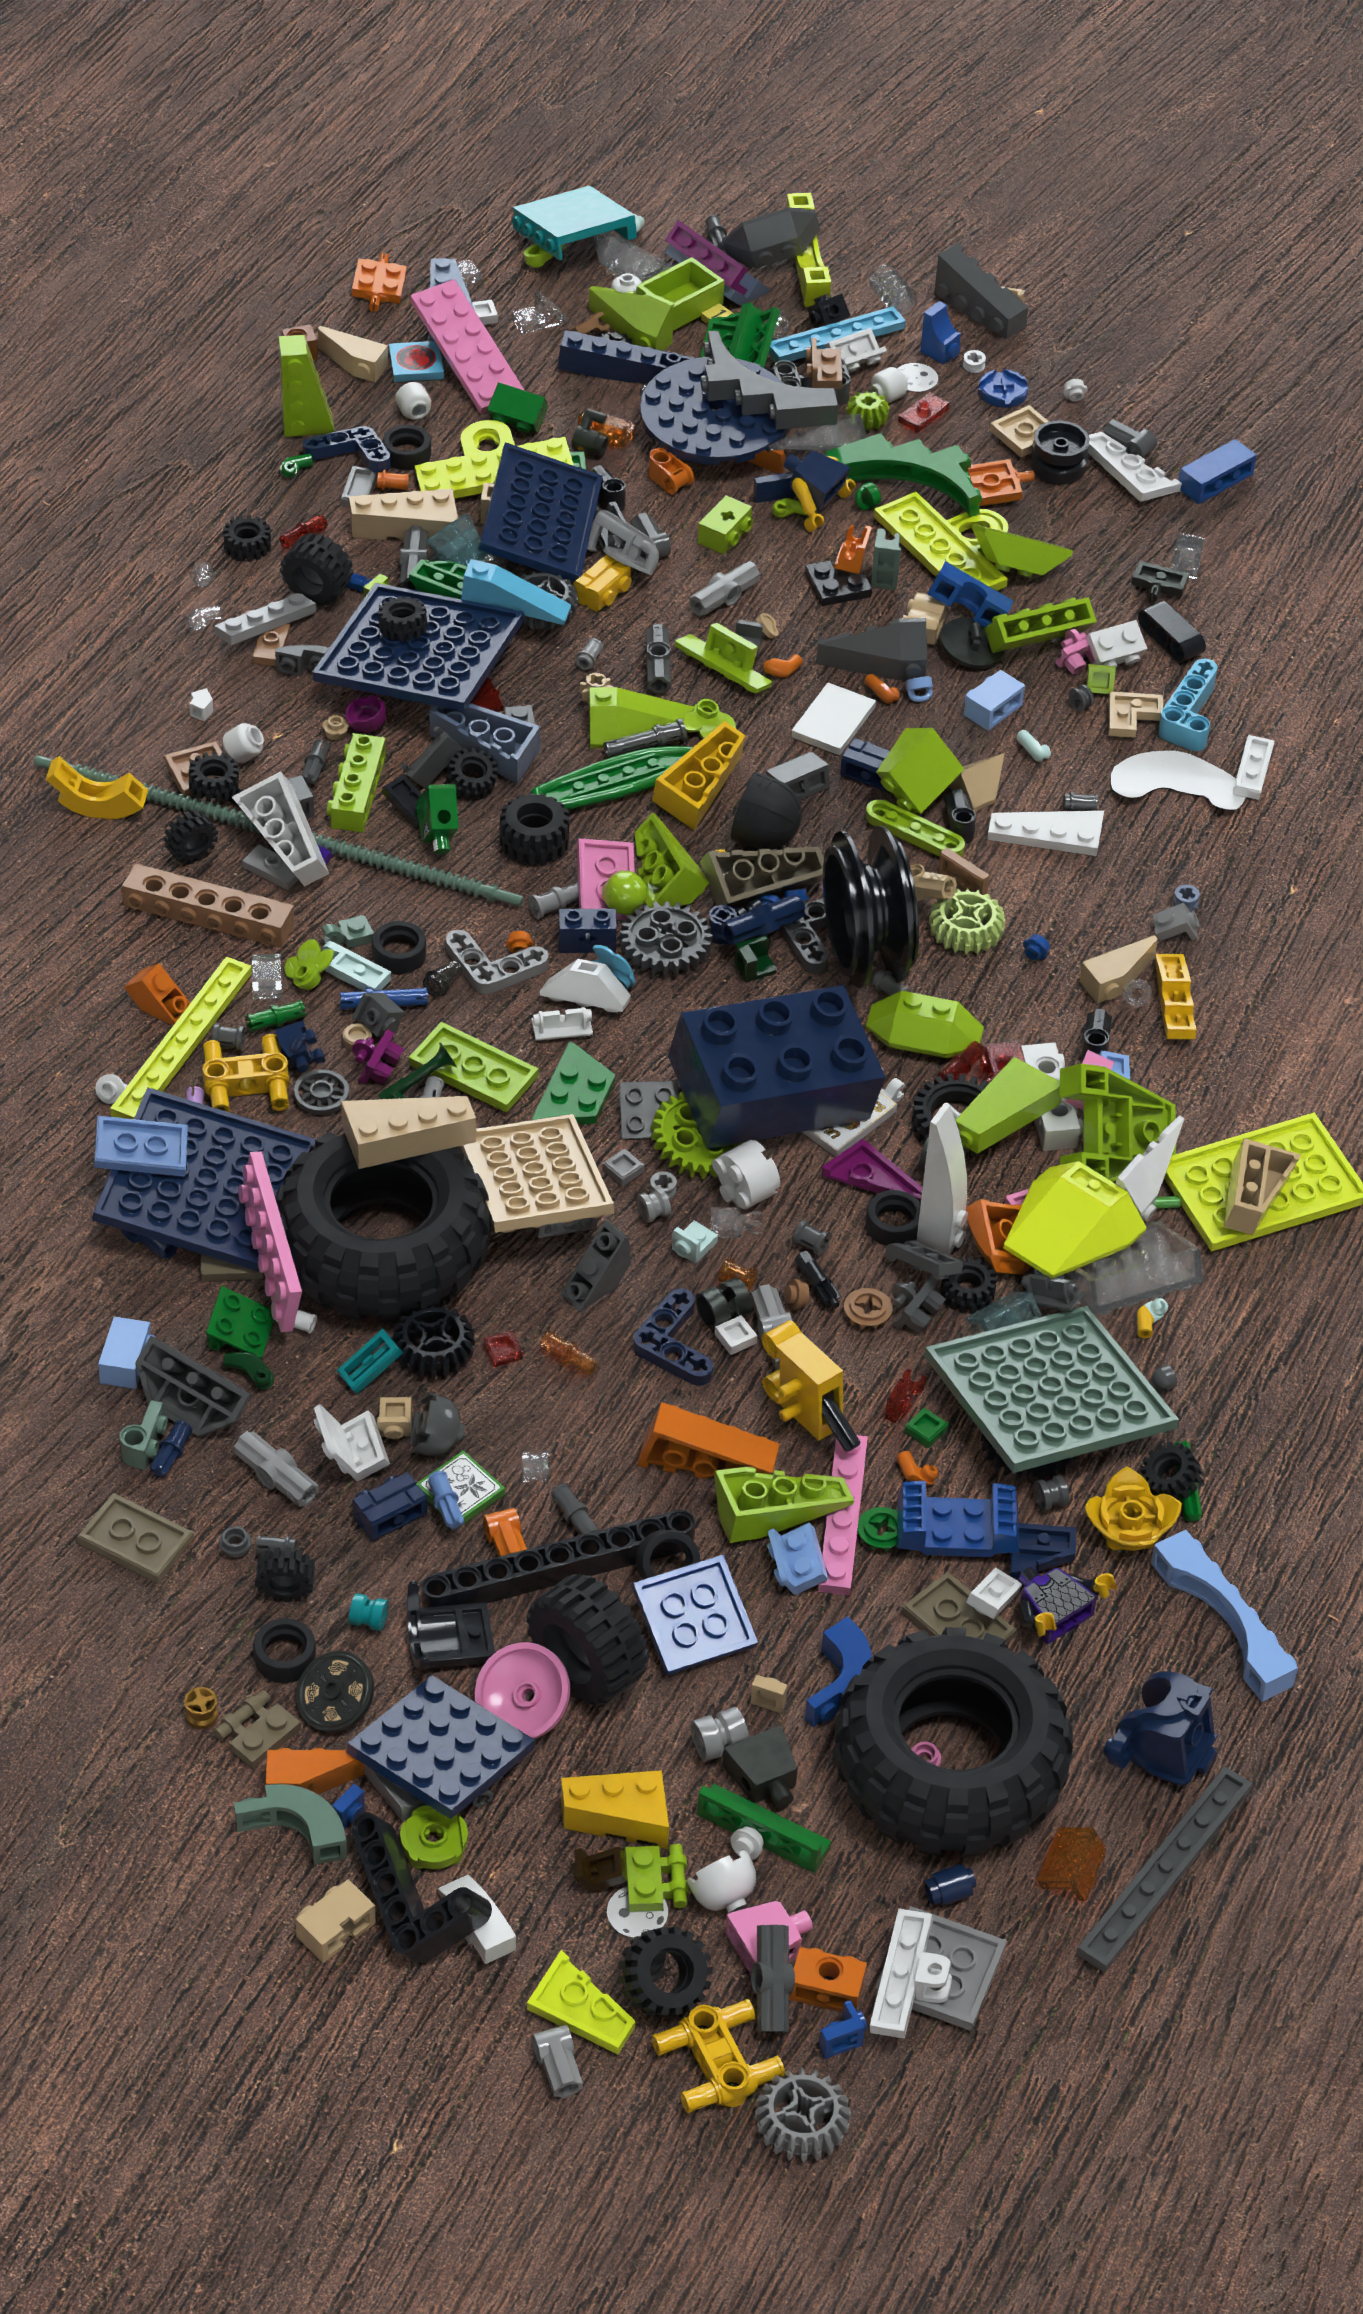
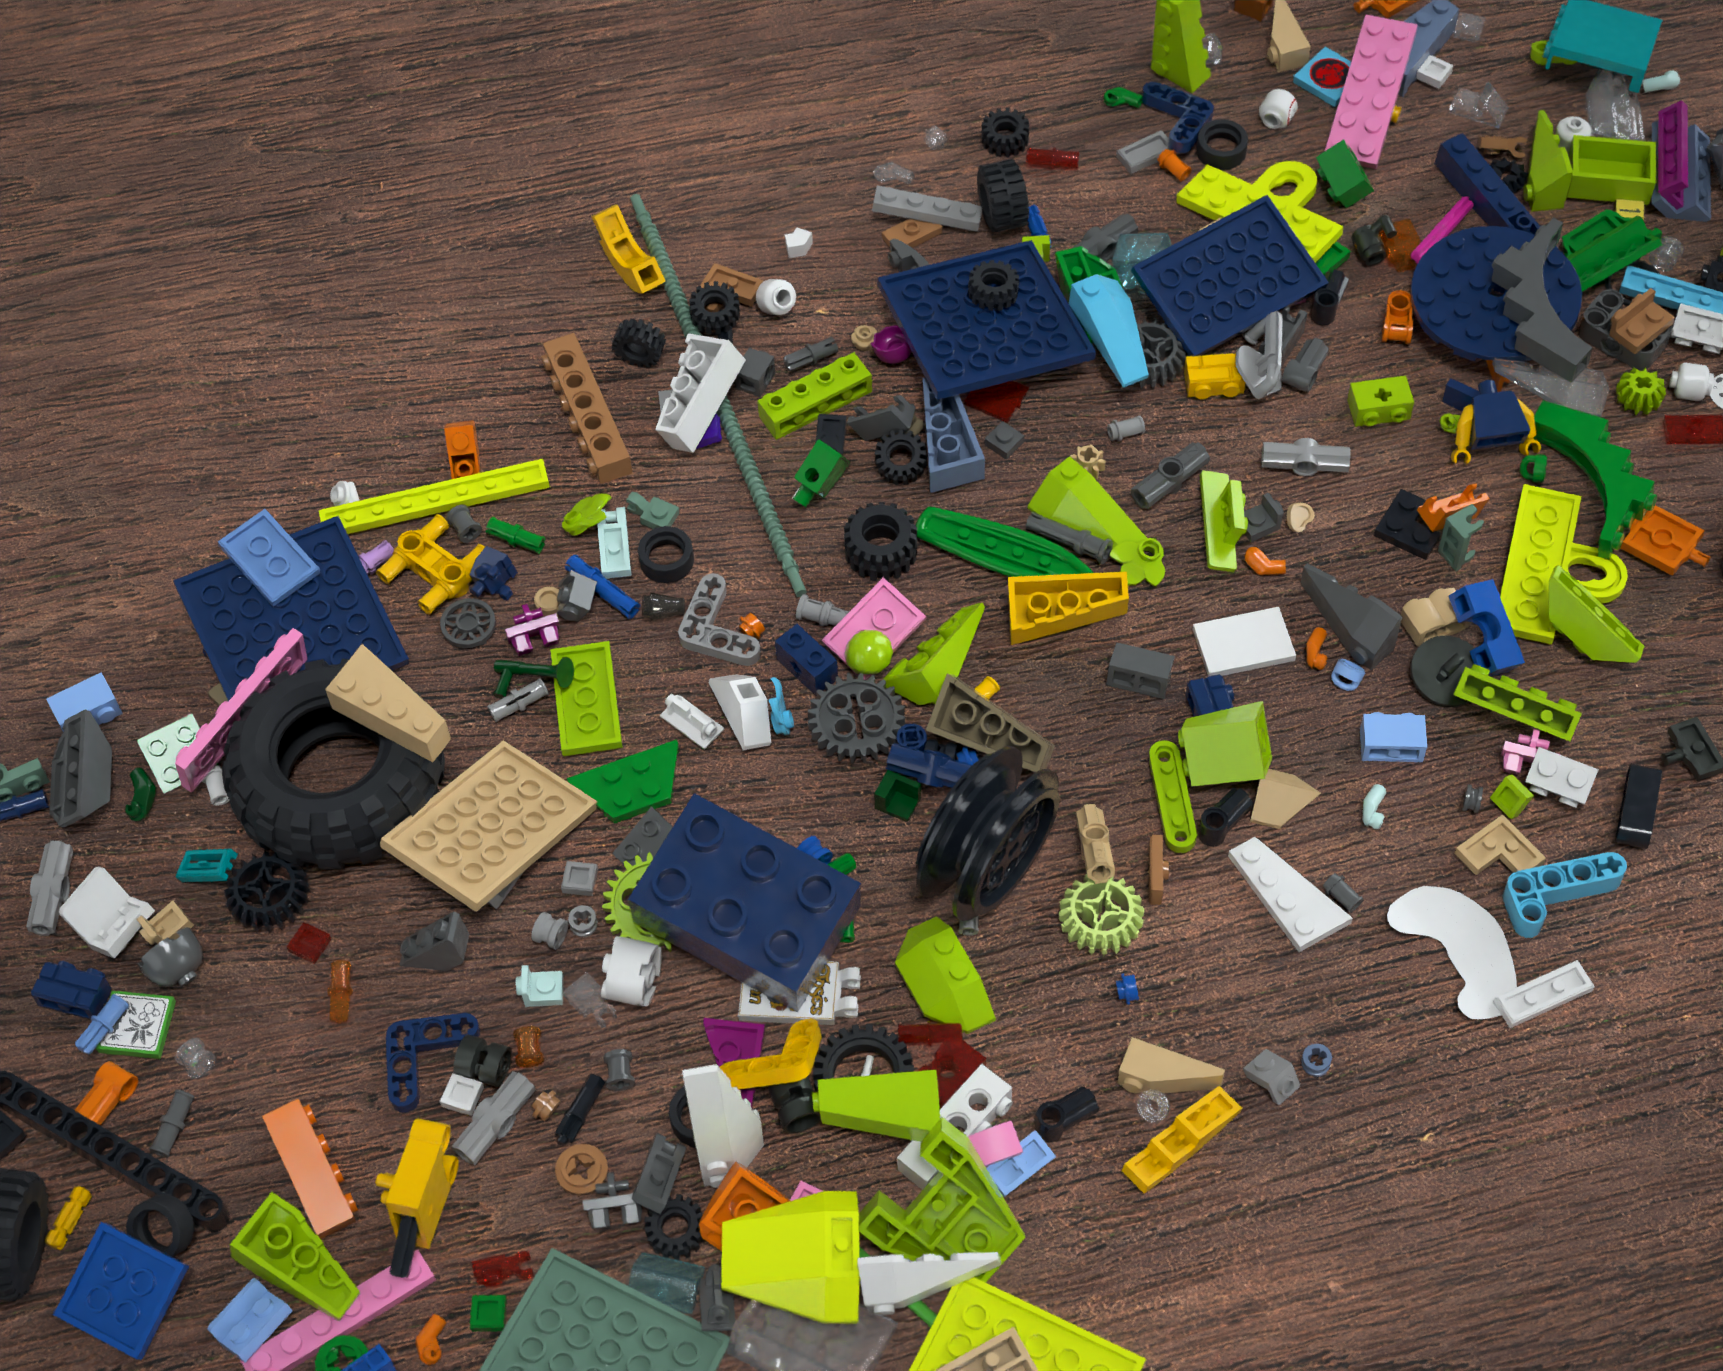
camera: 55 degrees right, 10 degrees up
(266, 976) = (550, 497): clear slope -> none
(393, 513) = (1149, 203): tan wedge -> none
(623, 401) = (1444, 227): none -> dark pink axle
(766, 814) = (1054, 677): black piece -> none
(913, 1133) = (789, 1066): none -> yellow beam

